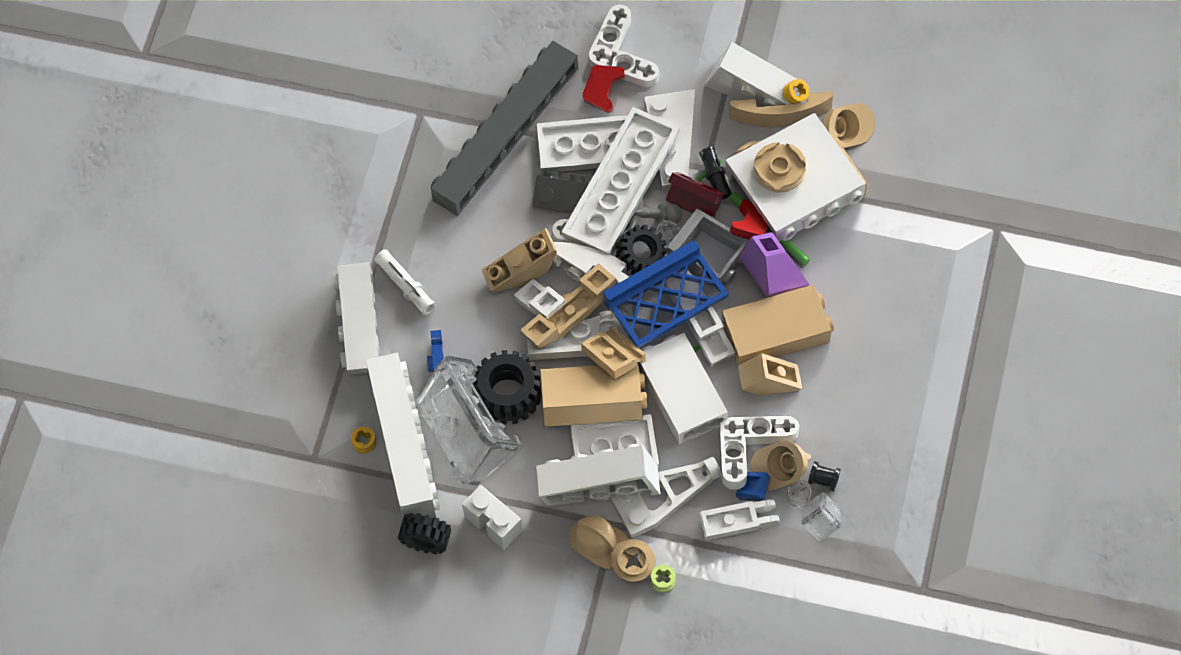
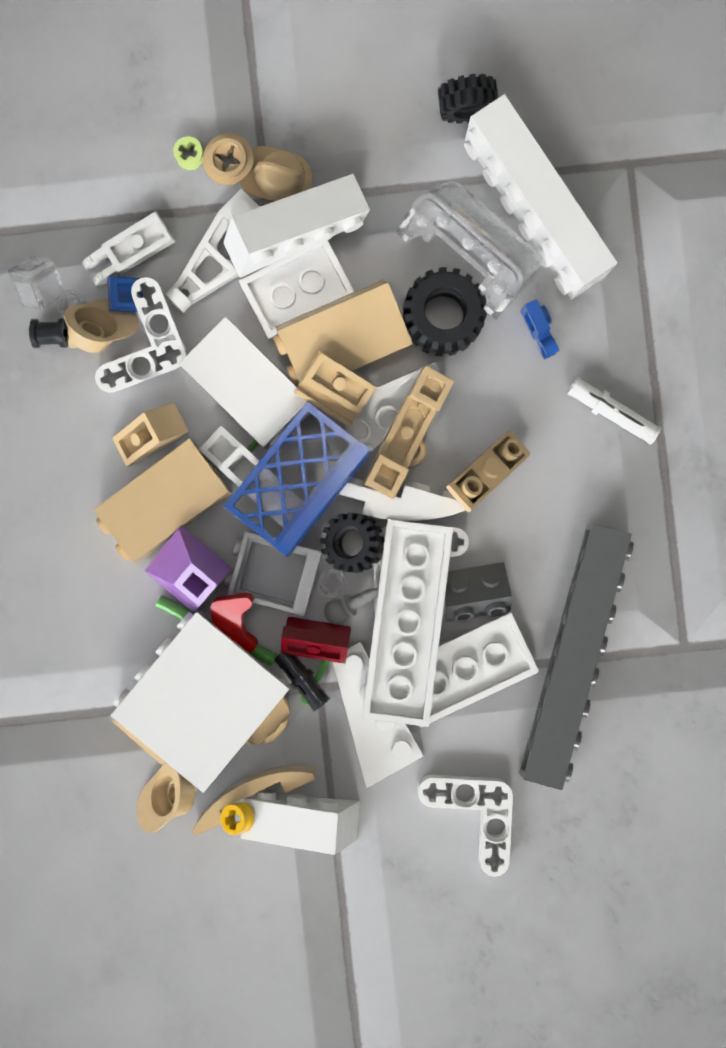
camera: 155 degrees right, 25 degrees up
(358, 316) = (650, 338): white wedge -> none
(367, 433) = (581, 191): yellow bush -> none
(485, 509) = (400, 154): white brick -> none
(539, 299) = (447, 437): white slope -> none
(599, 86) = (482, 750): red piece -> none
(779, 167) = (218, 699): tan tile -> none

